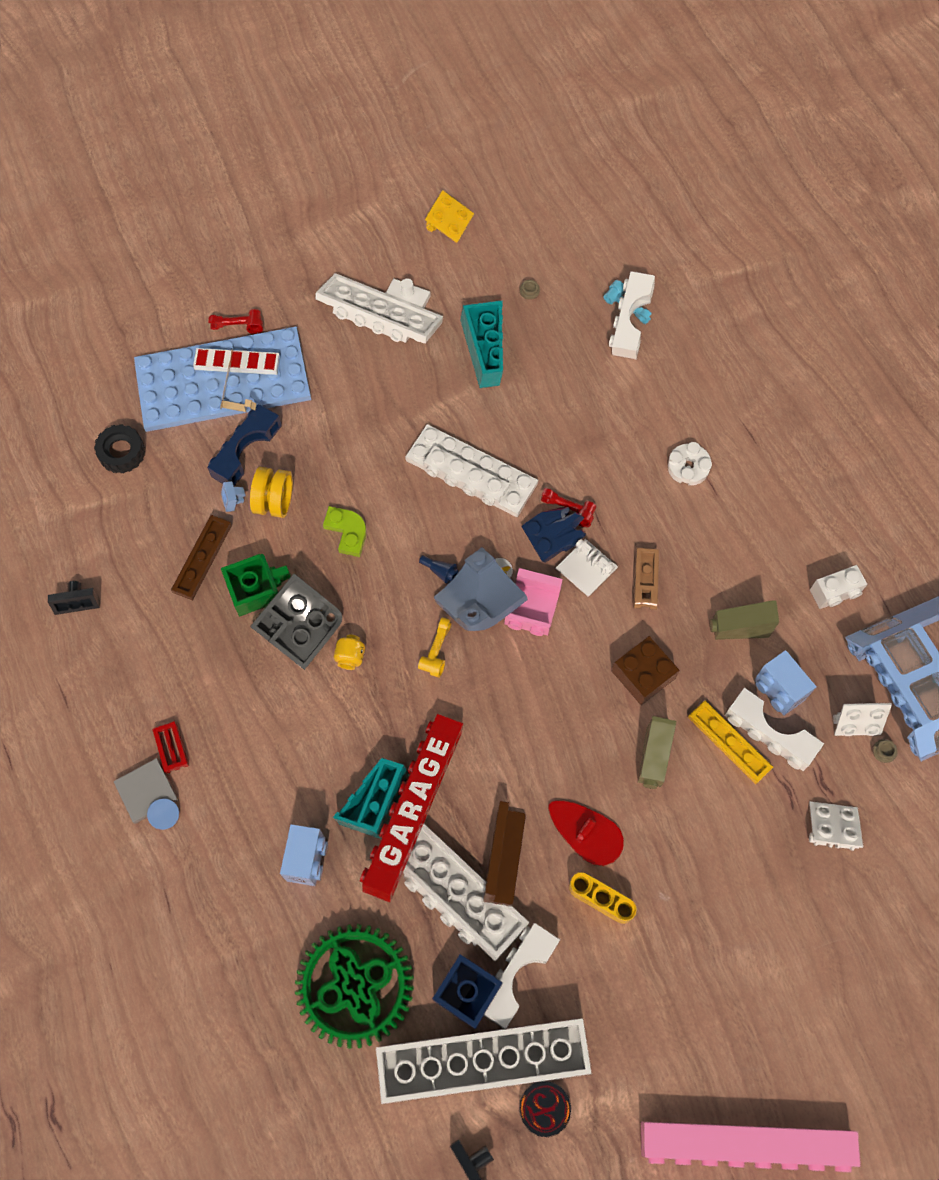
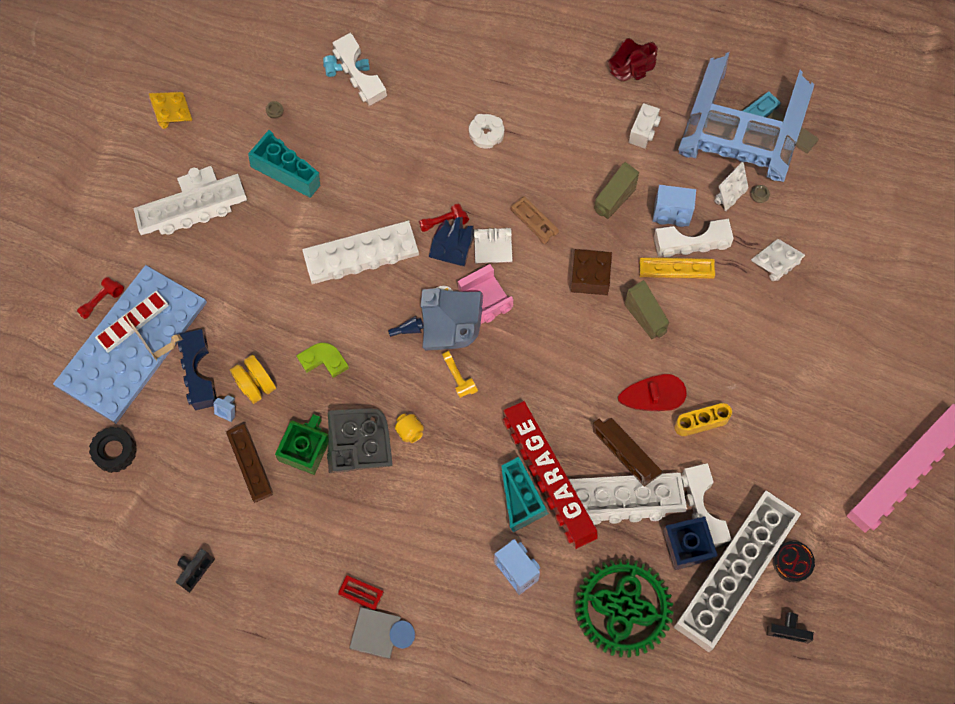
camera: 45 degrees left, 0 degrees up
(893, 519) = (641, 60): none -> dark red piece

